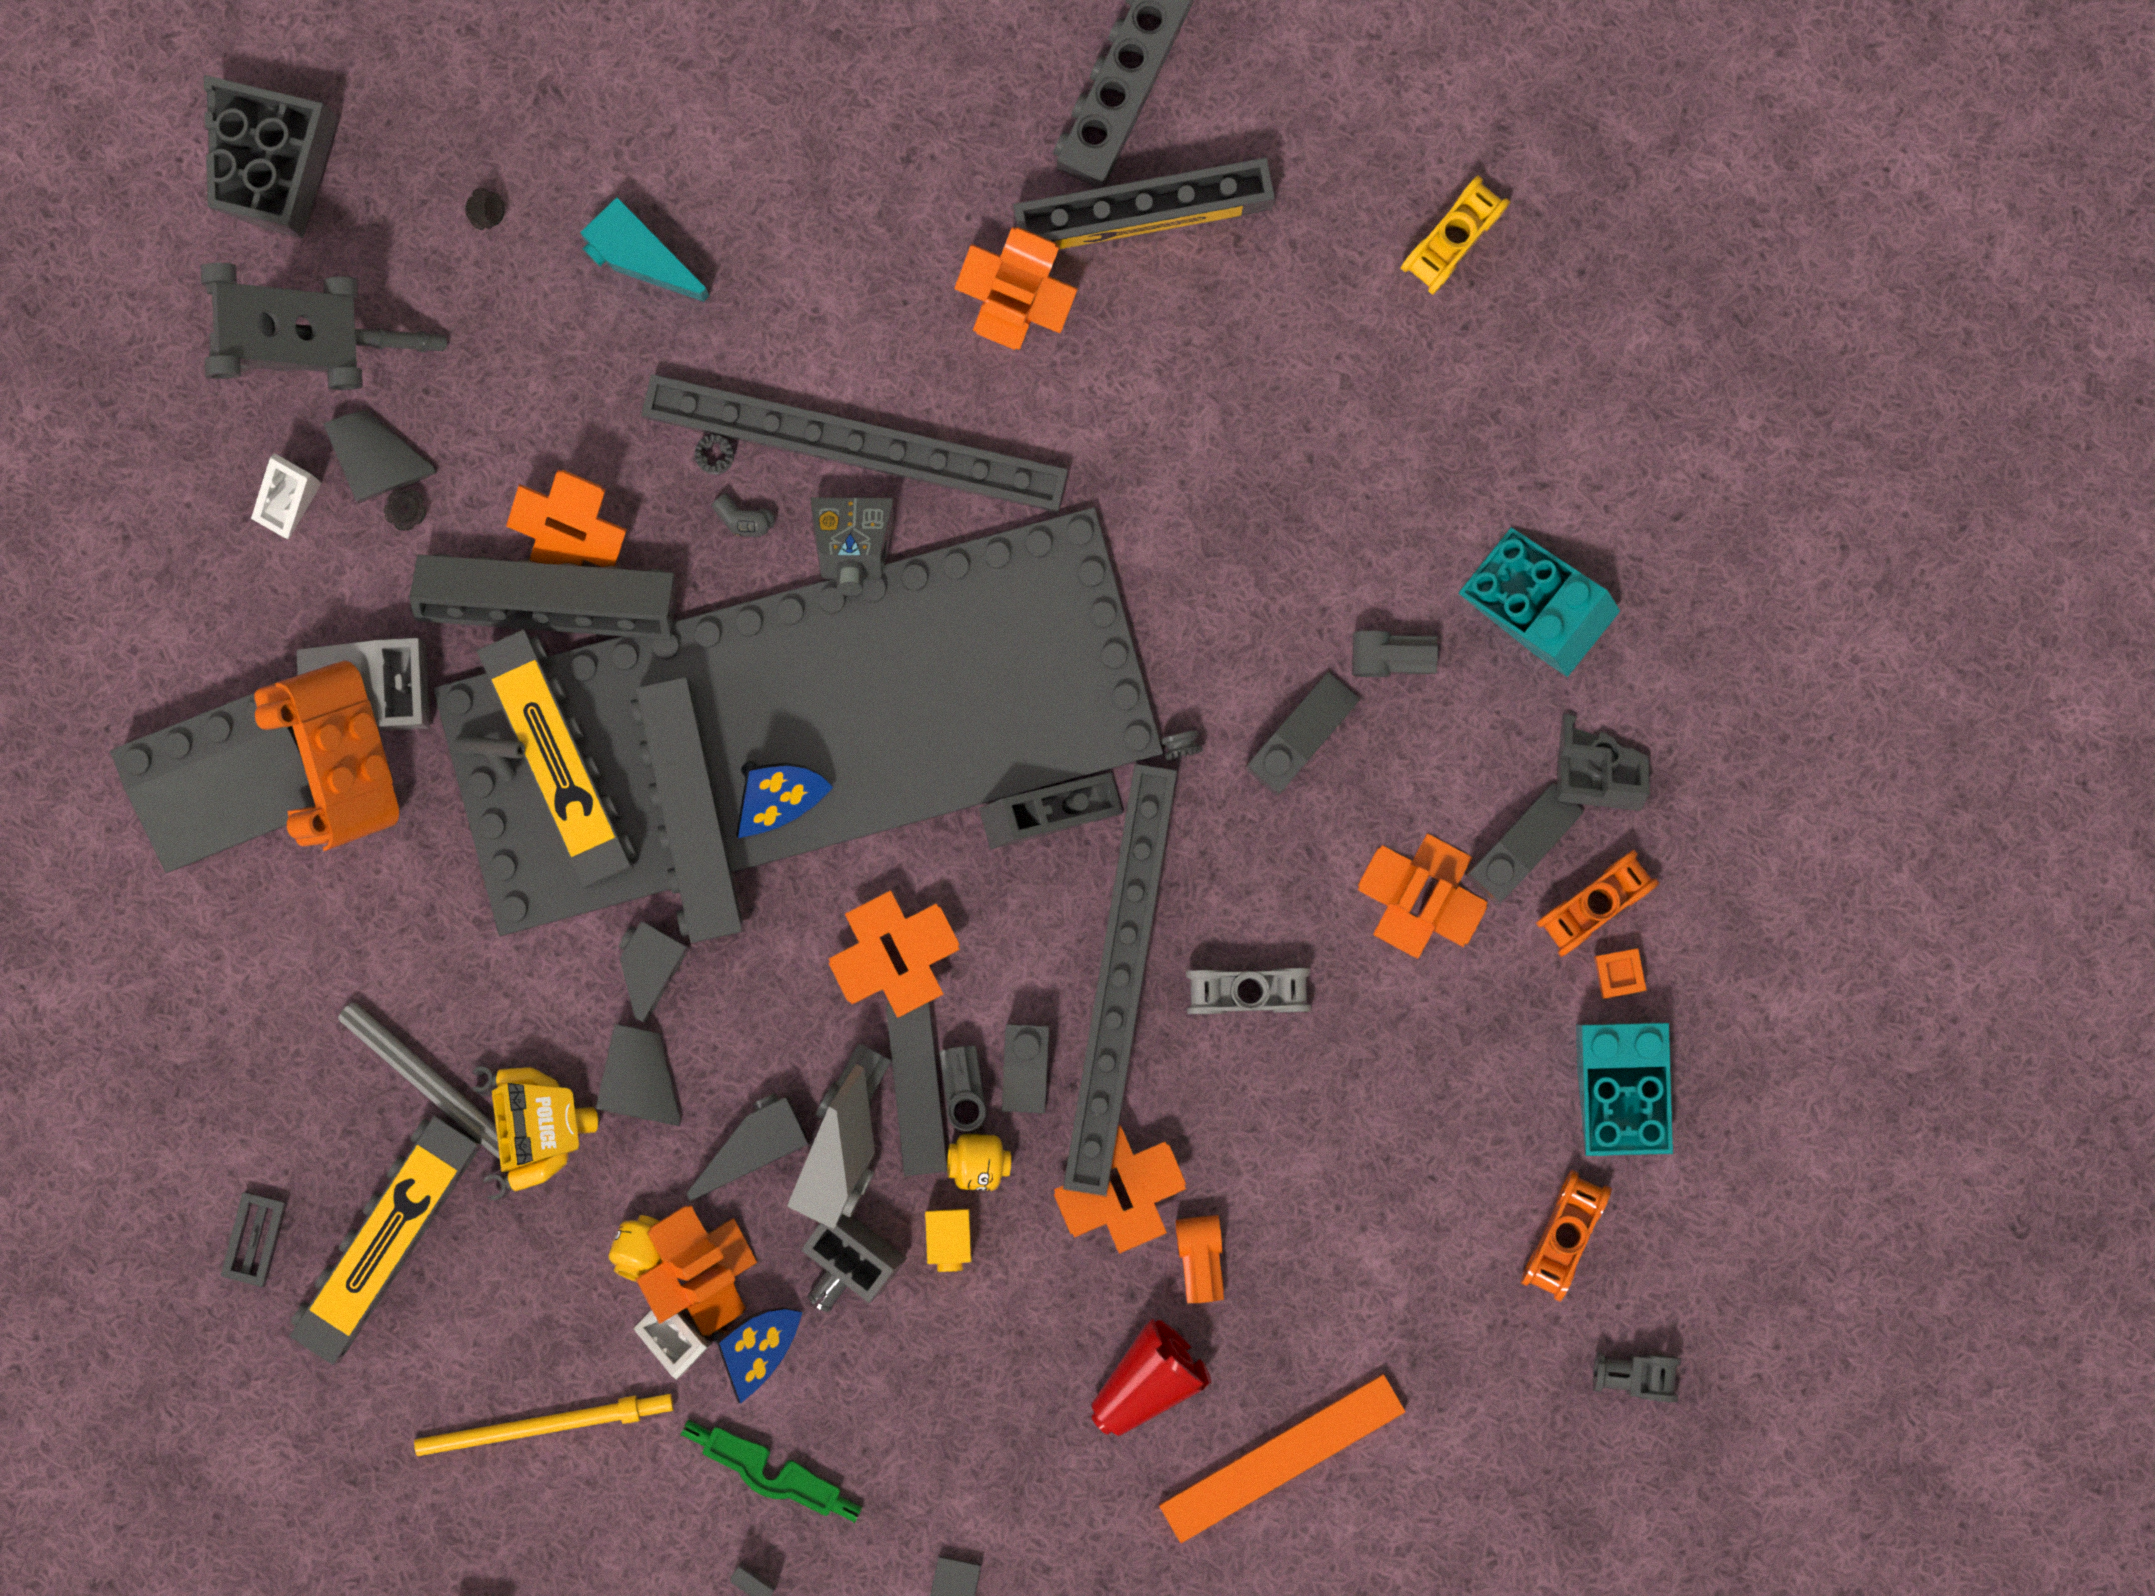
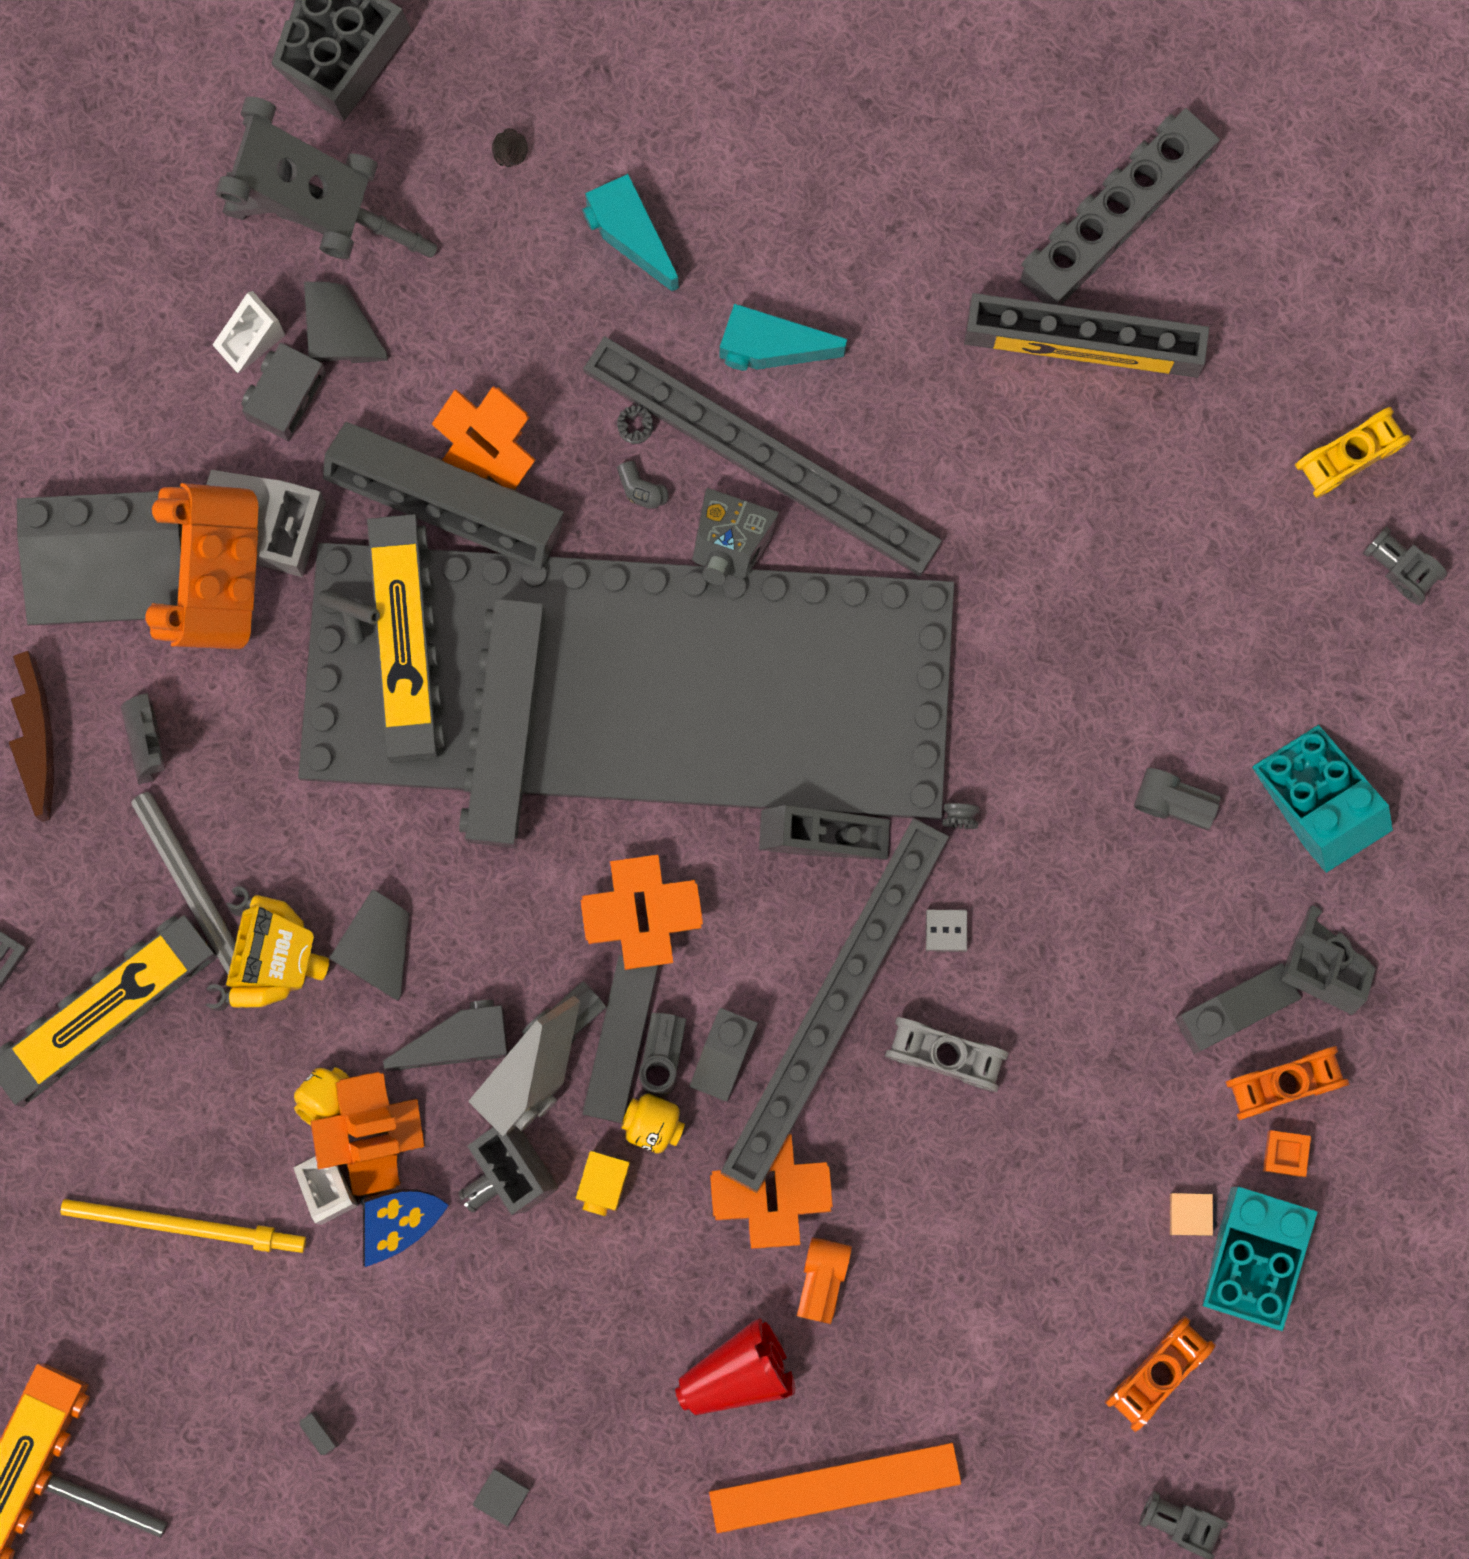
camera: 20 degrees right, 5 degrees down
(221, 1001) = (35, 749): none -> reddish brown slope
(326, 949) = (143, 737): none -> dark grey slope
(341, 543) = (283, 391): none -> dark grey brick
(407, 520) = (348, 391): clear smoke plate -> none
(649, 966) = (421, 849): dark grey slope -> none
(749, 1461) = (386, 1354): green piece -> none
(777, 795) = (587, 736): blue shield -> none
(819, 322) = (769, 341): none -> teal slope
(1010, 285) = (945, 362): orange piece -> none
(1206, 865) = (946, 930): none -> light grey tile
(1302, 734) = (1070, 843): dark grey slope -> none
(1398, 883) = (1112, 1005): orange piece -> none
(1545, 1066) = (1191, 1214): none -> light nougat tile
(1546, 334) = (1406, 566): none -> dark grey connector

